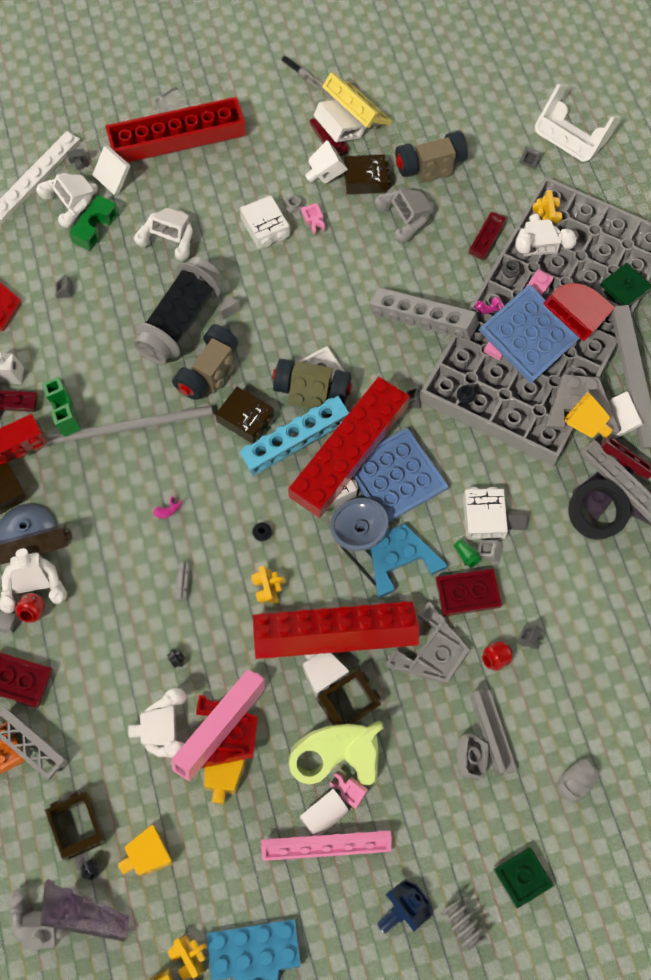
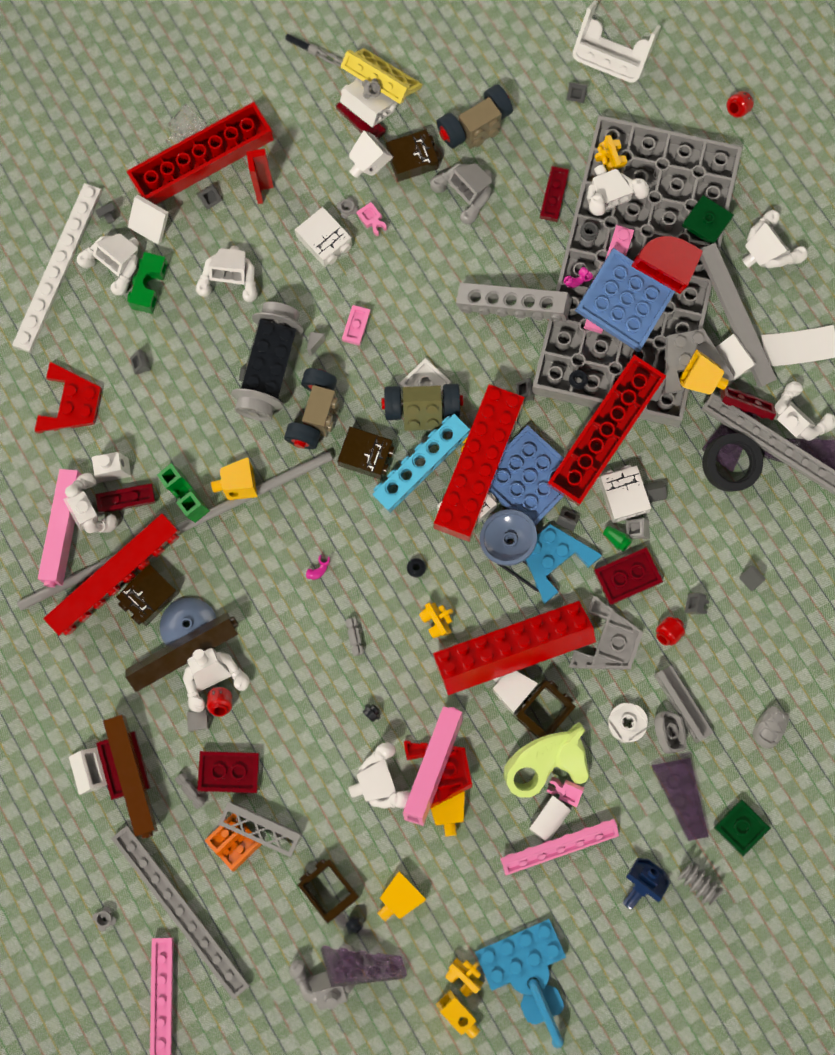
camera: 10 degrees left, 10 degrees up
(116, 409) = (237, 480): none -> yellow torso
(173, 167) = (209, 196): none -> dark grey slope
(221, 150) = (259, 172): none -> red fence
(271, 303) = (356, 325): none -> bright pink plate
(348, 107) = (375, 88): none -> light grey plate
(422, 524) = (568, 519): none -> dark grey slope
(425, 747) = (627, 711): none -> white plate
(468, 822) = (682, 794): none -> clear purple wing
(481, 445) = (606, 430): none -> red brick
(593, 625) = (752, 578): none -> dark grey slope

